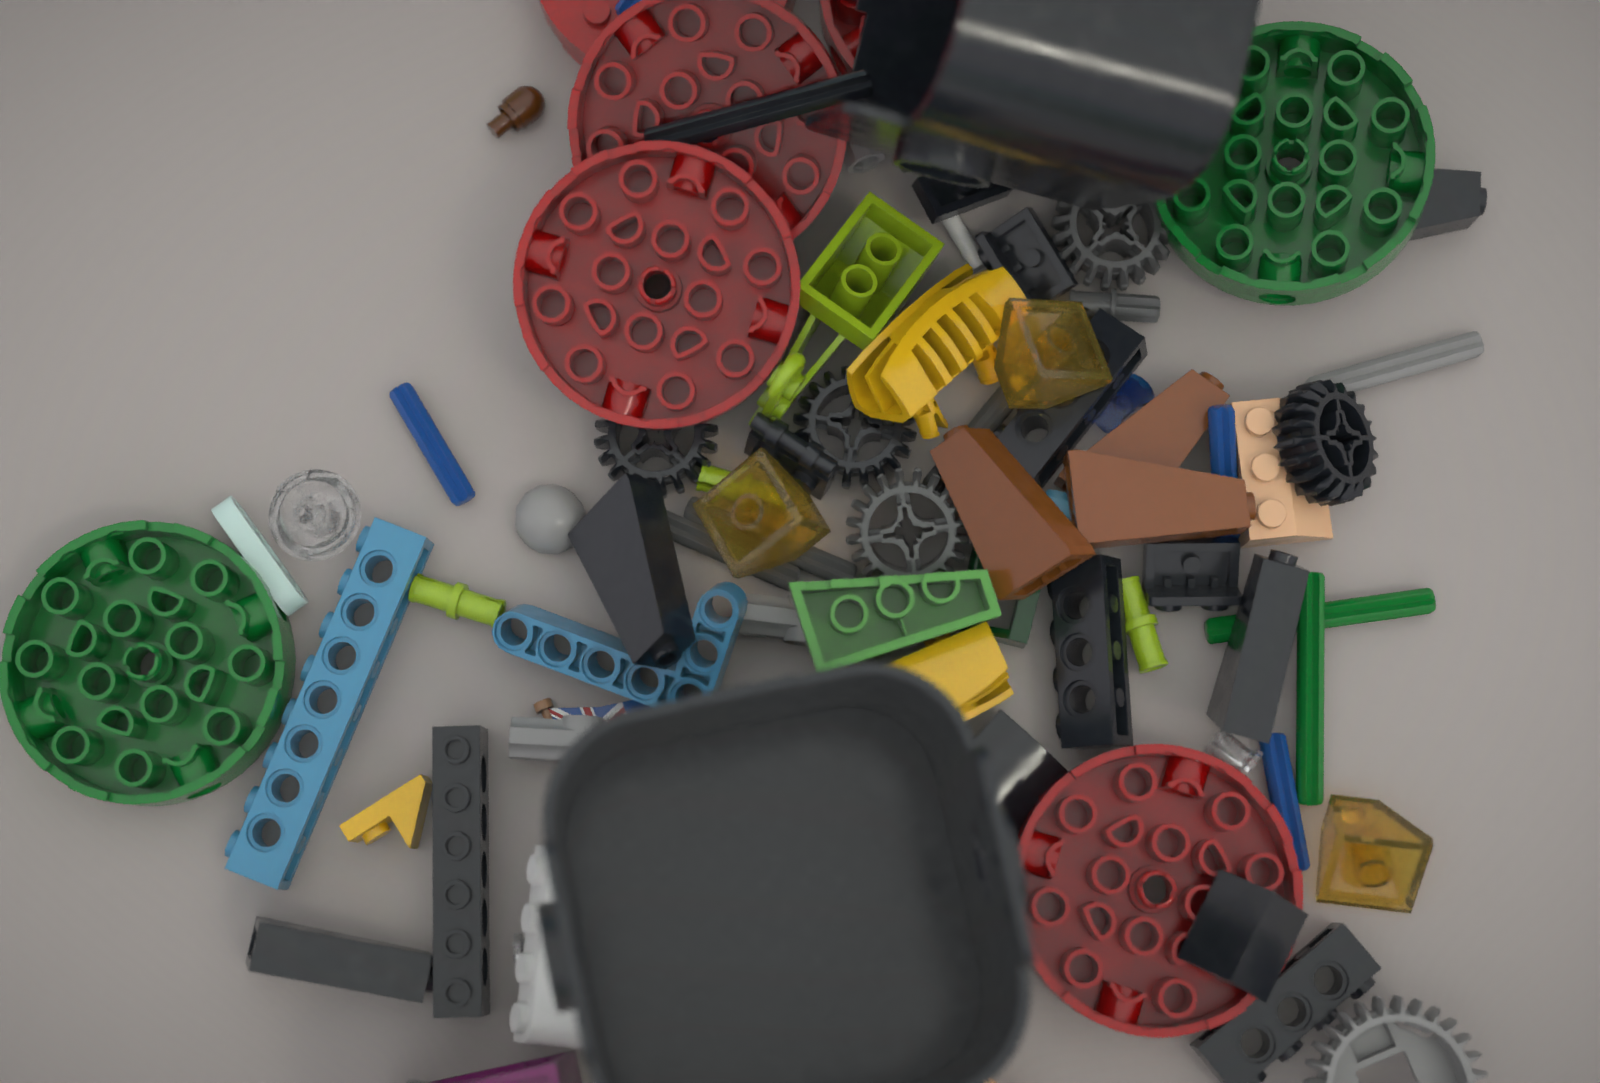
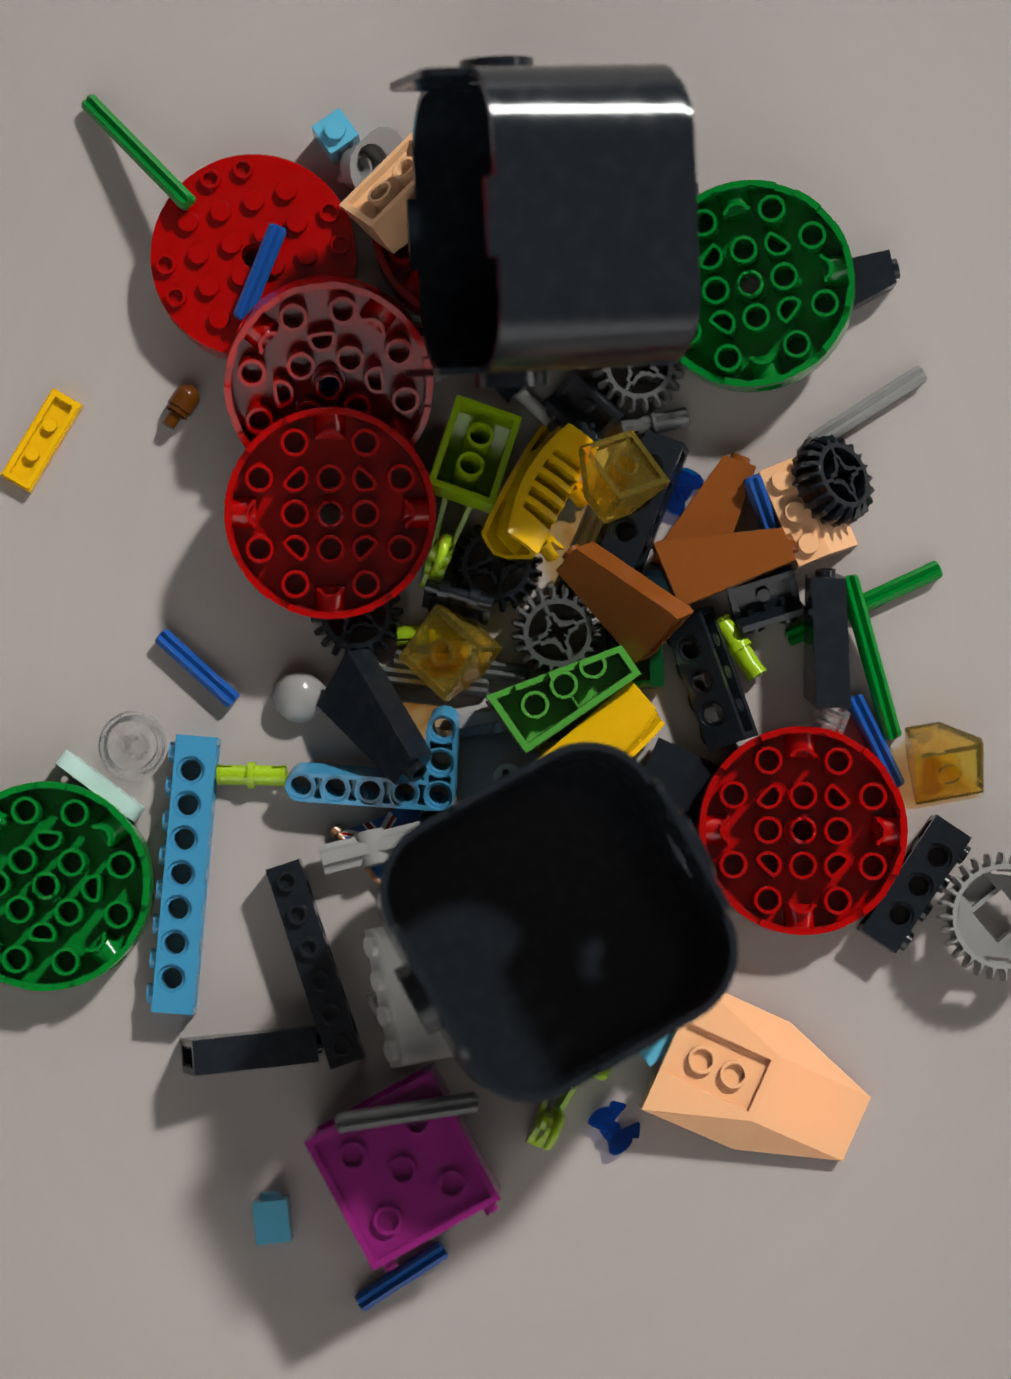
camera: 25 degrees left, 5 degrees up
(330, 105) = (42, 440): none -> yellow tile
(403, 806) = (261, 930): yellow slope -> none
(764, 109) = (364, 365): black axle -> none
(1242, 934) = (869, 844): black slope -> none

